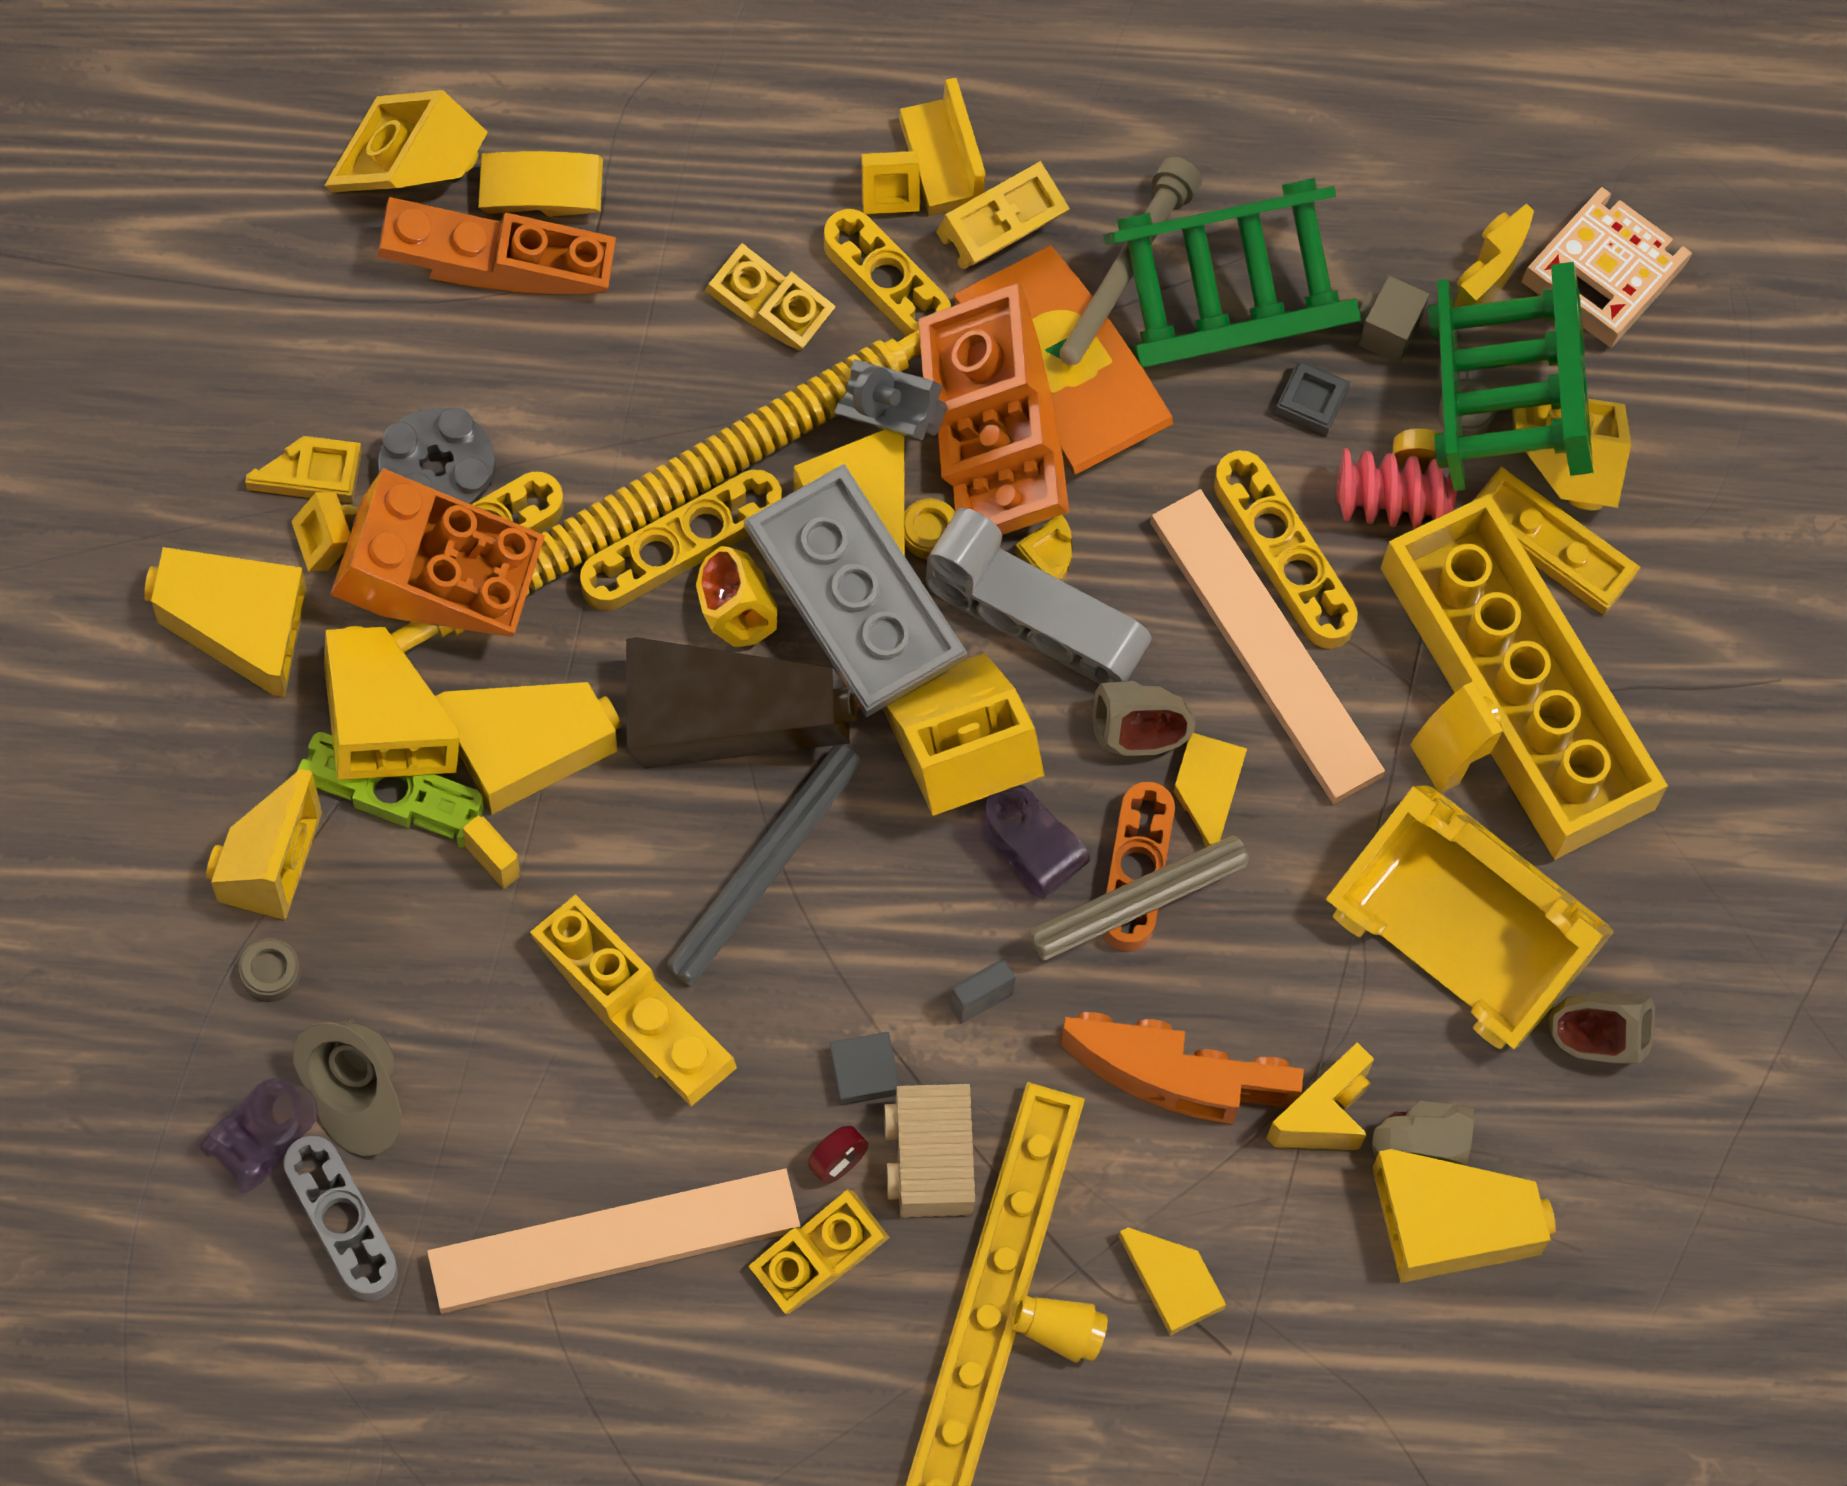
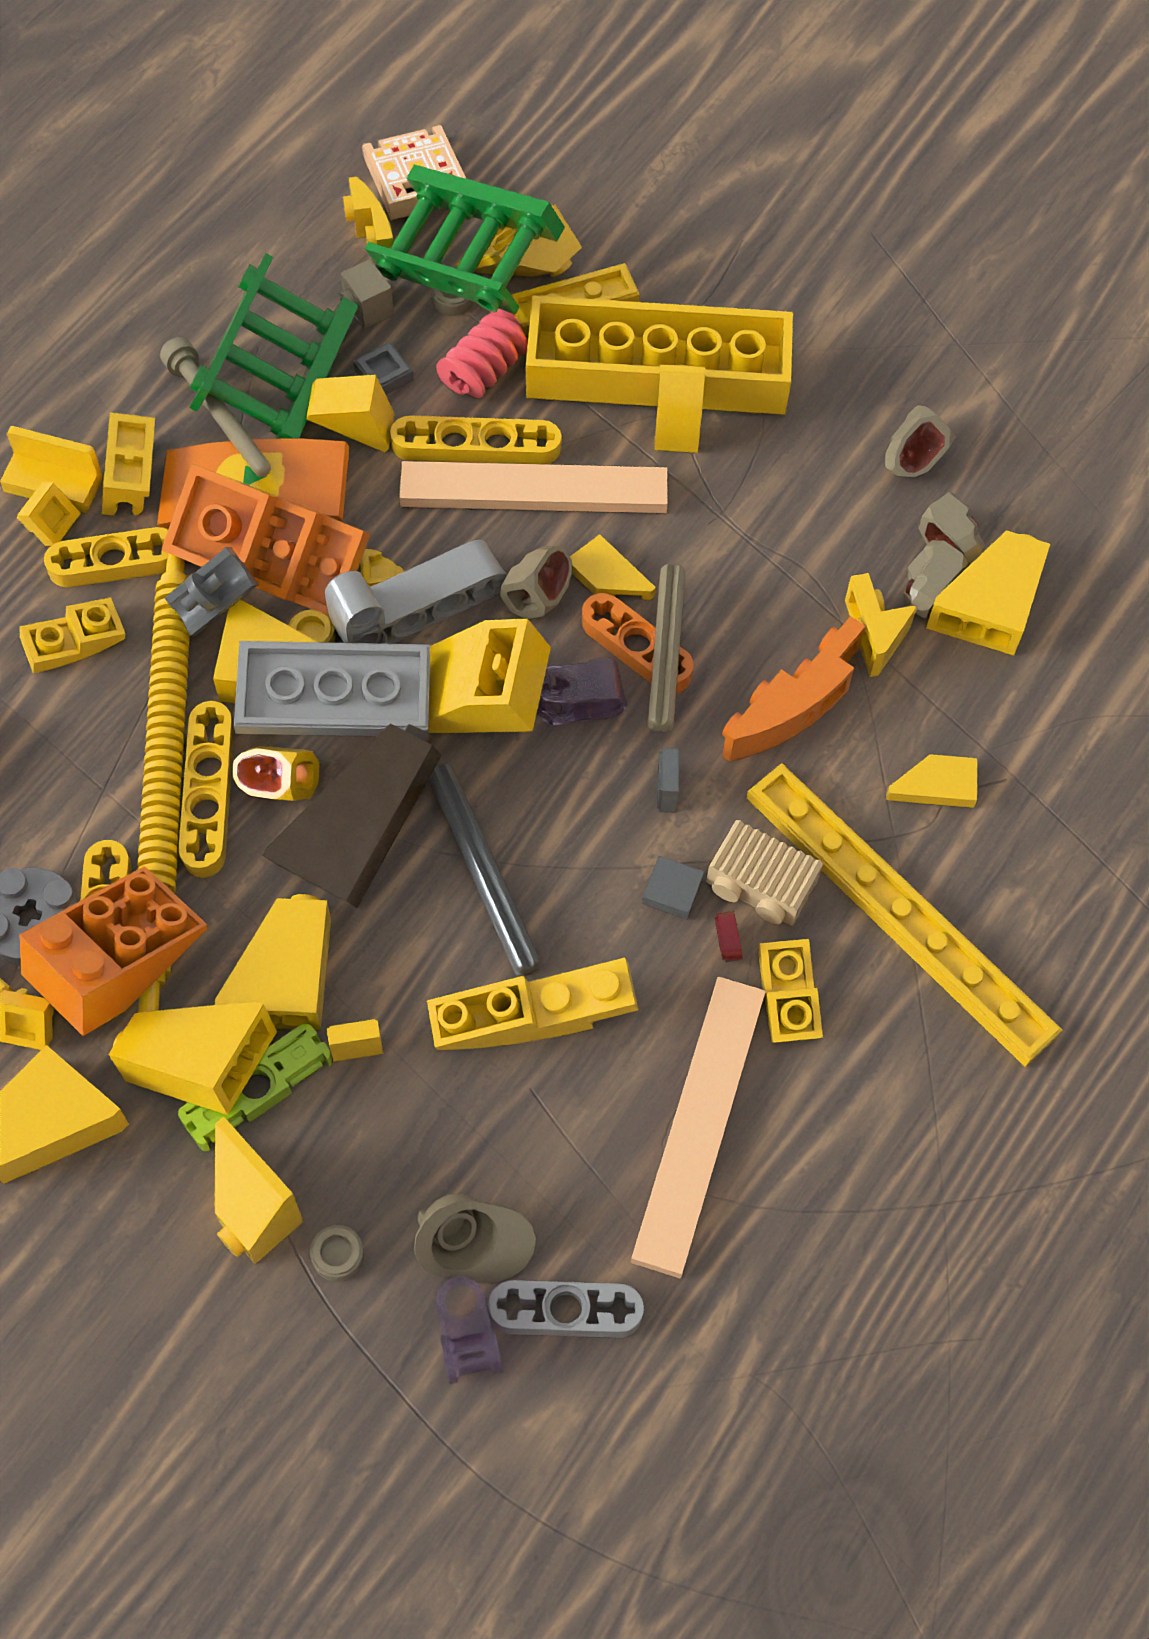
camera: 55 degrees left, 5 degrees down
(1062, 1326) = (939, 862): yellow cone -> none
(1221, 399) = (353, 408): none -> yellow slope
(1415, 443) = (463, 323): yellow tile -> none
(1469, 914) = (803, 470): yellow windscreen -> none
(1513, 1127) = (952, 521): none -> dark tan rock

